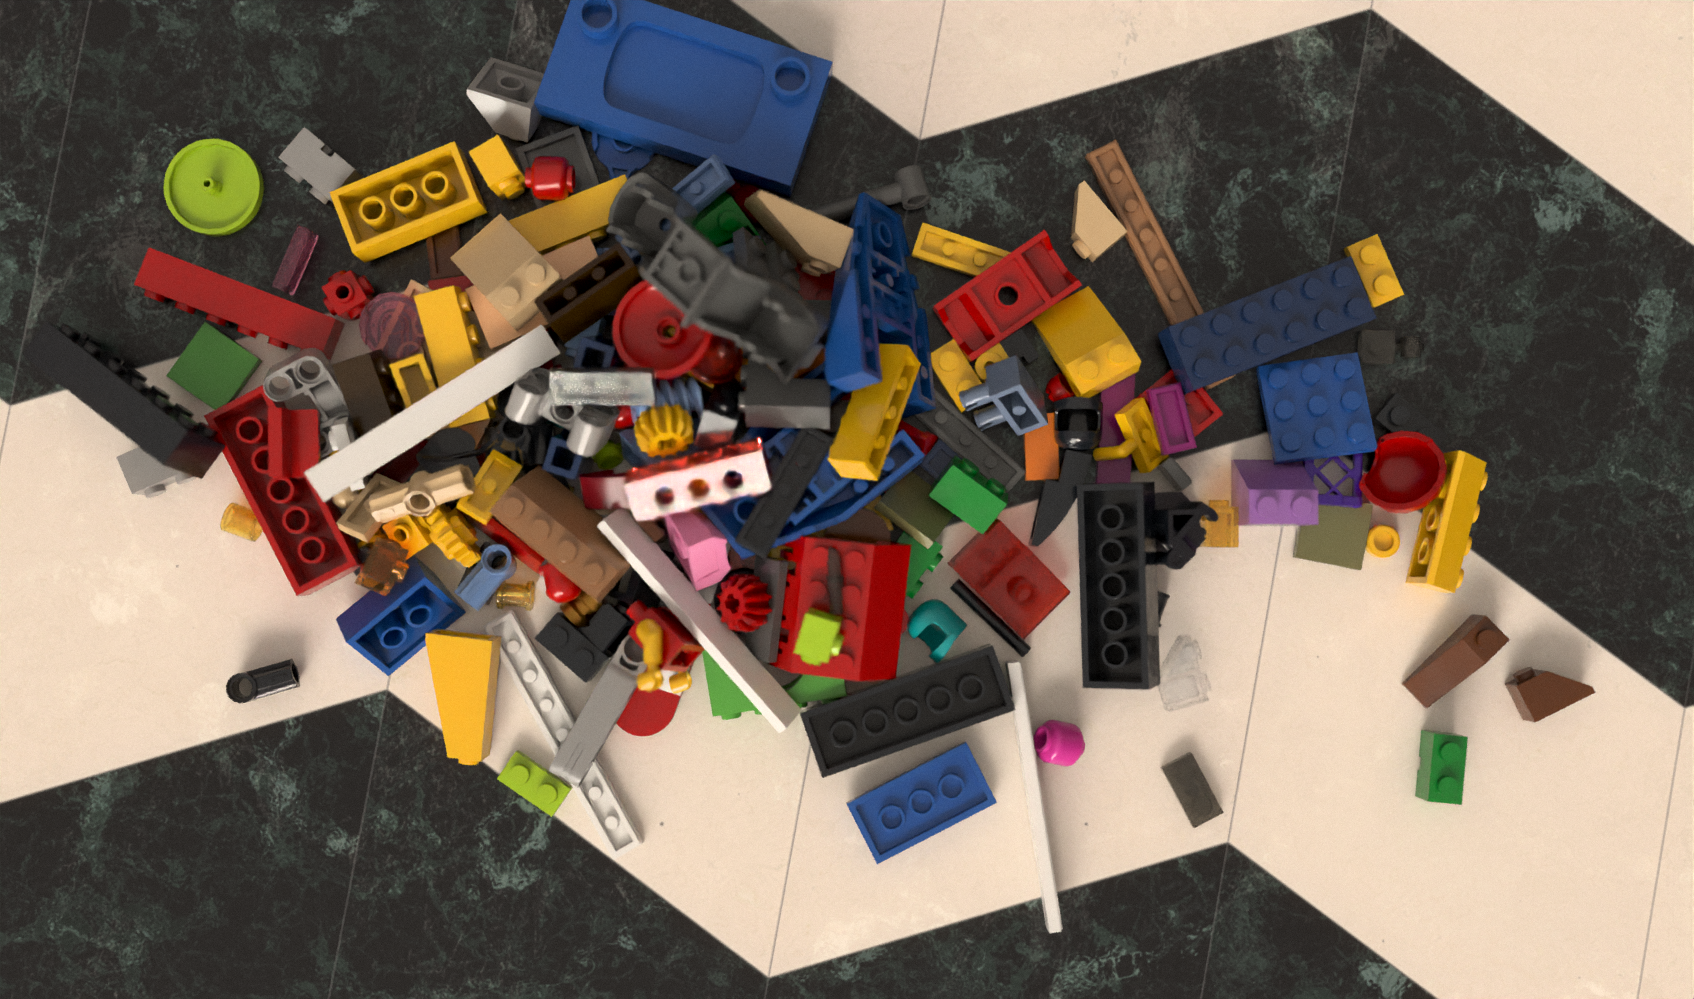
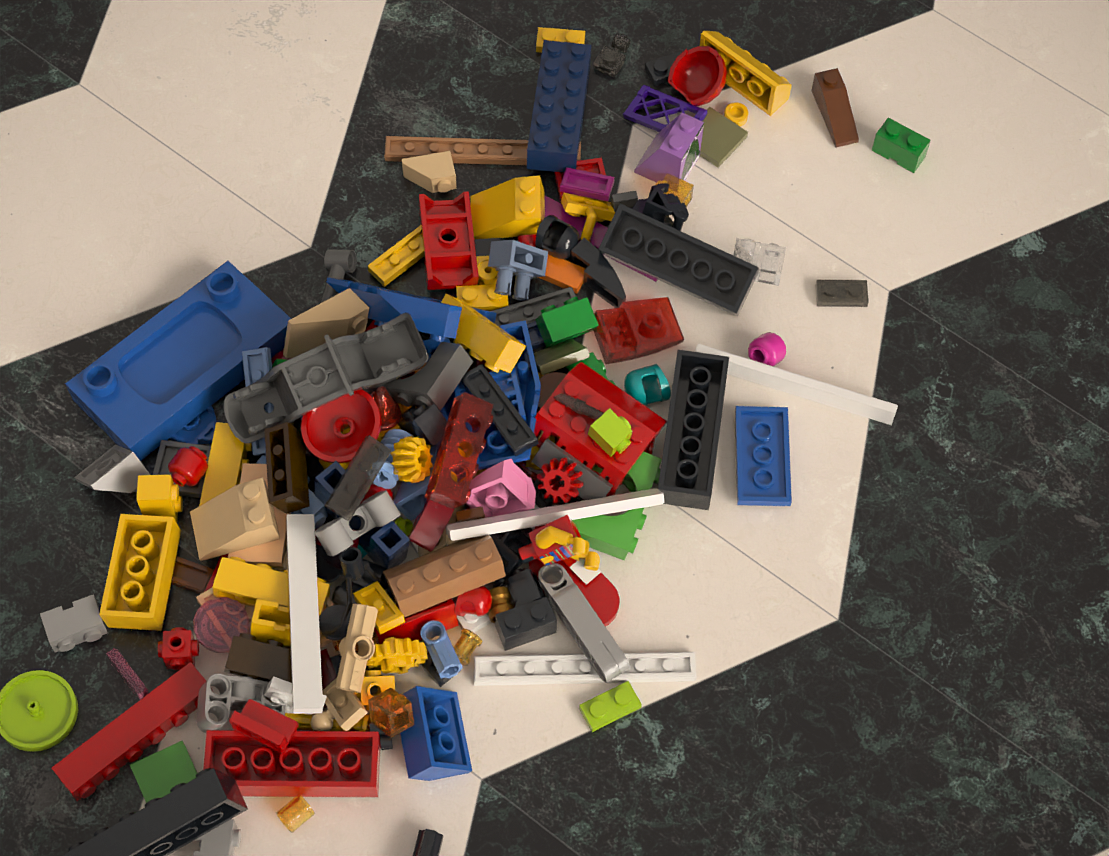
camera: 65 degrees left, 25 degrees down
(465, 689) = (514, 711): yellow slope -> none
(990, 618) = (656, 356): black piece -> none
(1316, 408) = (629, 107): blue plate -> none
(1544, 693) = (882, 71): reddish brown slope -> none

